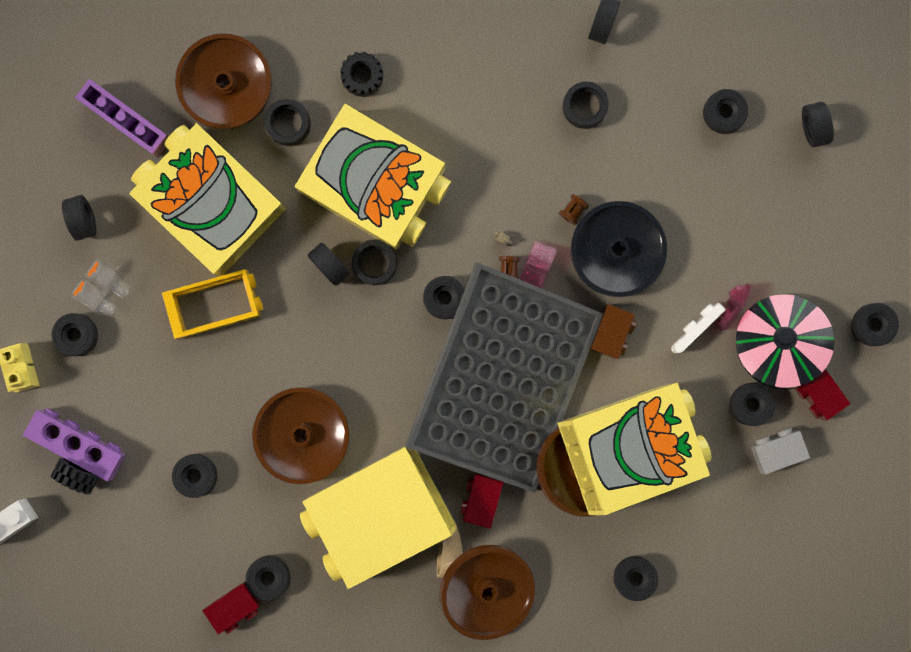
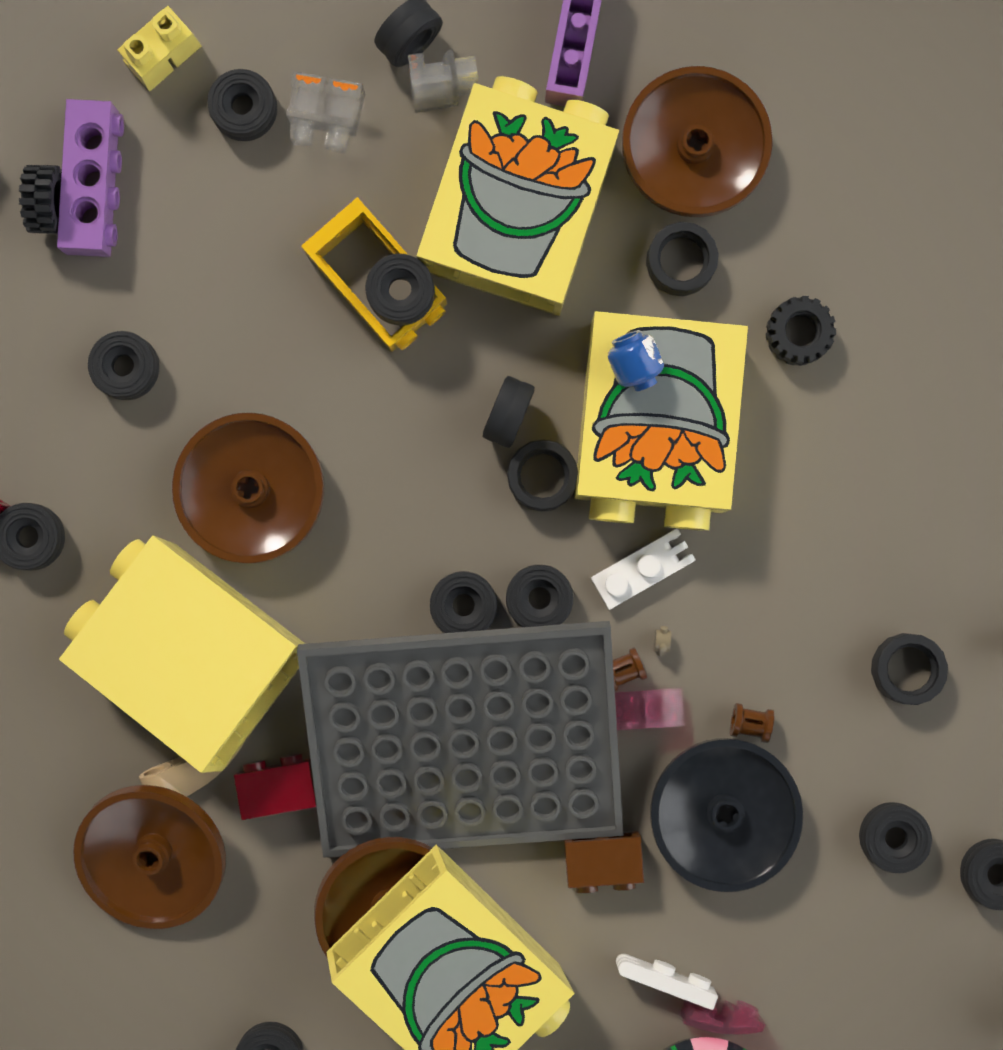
camera: 65 degrees right, 0 degrees up
(118, 212) = (440, 83): none -> clear hips
(214, 292) = (400, 268): none -> black tyre
(334, 176) = (635, 360): none -> blue head
(414, 338) = (463, 583): none -> black tyre
(456, 231) = (641, 570): none -> white hinge
(677, 145) = (910, 853): none -> black tyre

